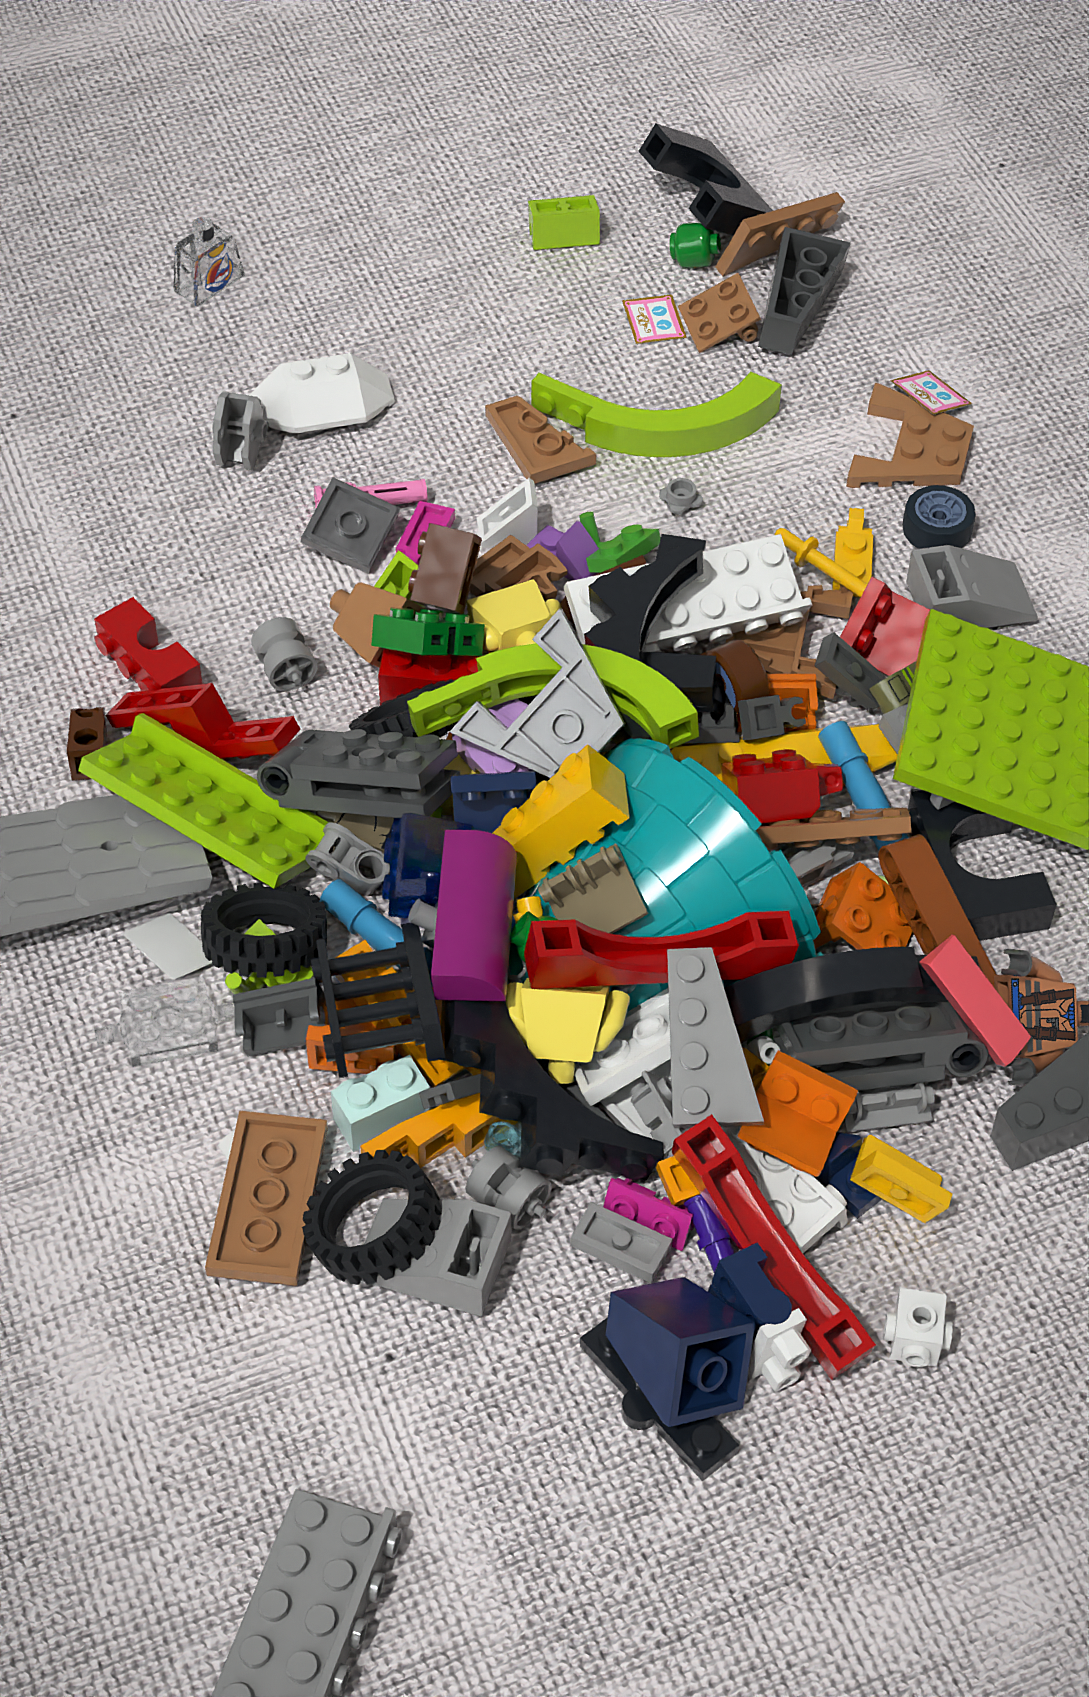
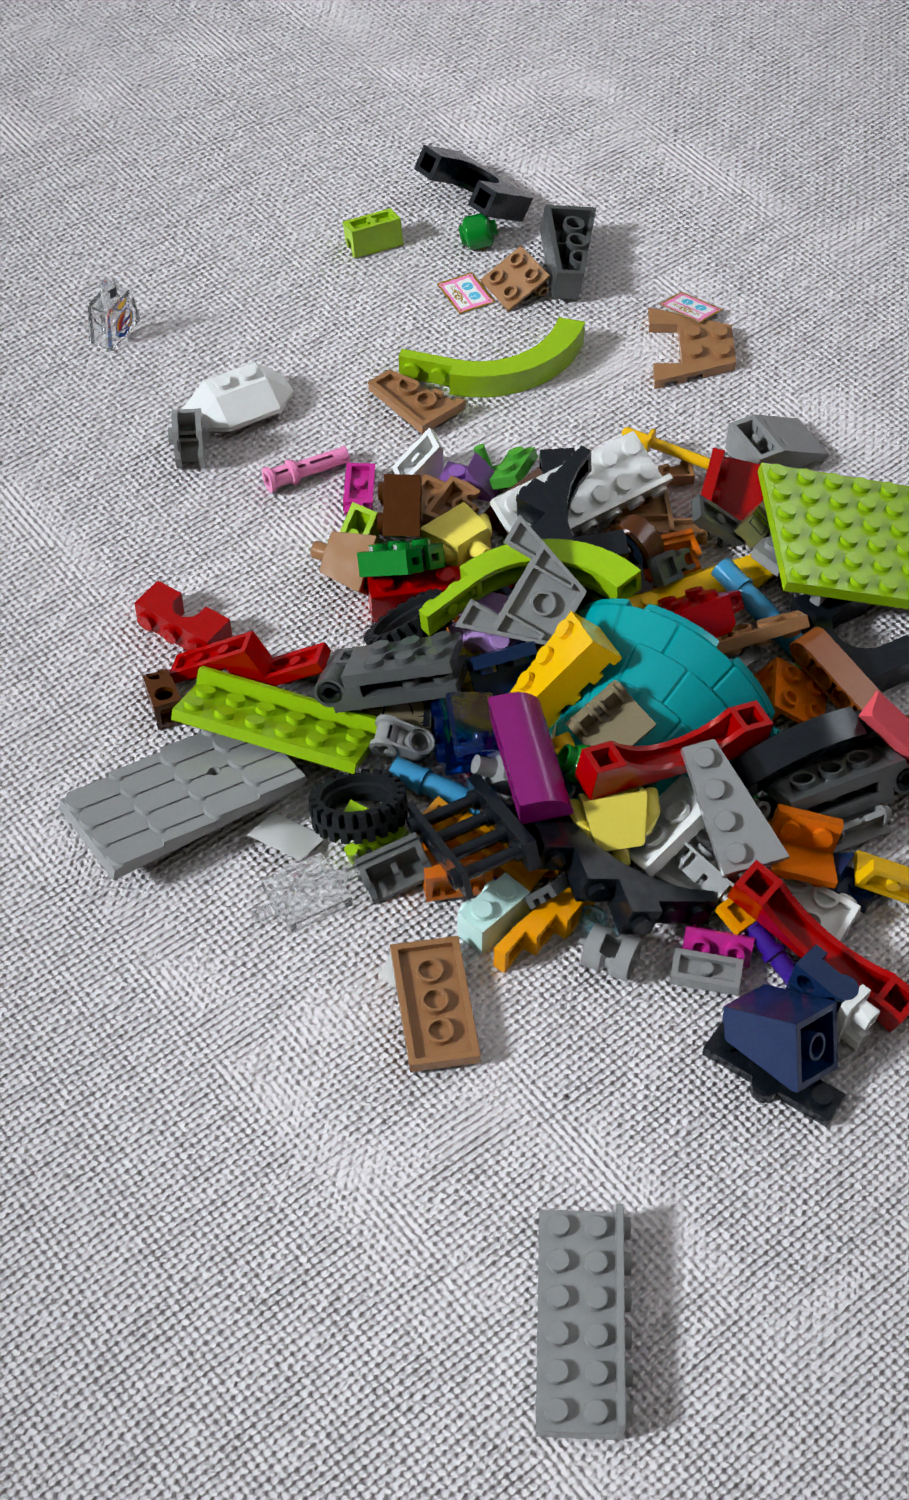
camera: 15 degrees left, 0 degrees up
(284, 655) = (288, 598): light grey wheel -> none
(350, 525) = (301, 492): flat silver tile -> none
(397, 1243) = (541, 1023): black tyre -> none
(460, 1261) = (576, 1010): light grey slope -> none
(681, 495) = (538, 419): light grey plate -> none
(763, 233) = (530, 211): medium nougat wing -> none
(854, 547) = (678, 431): yellow hinge -> none
(938, 517) = (732, 397): black wheel -> none

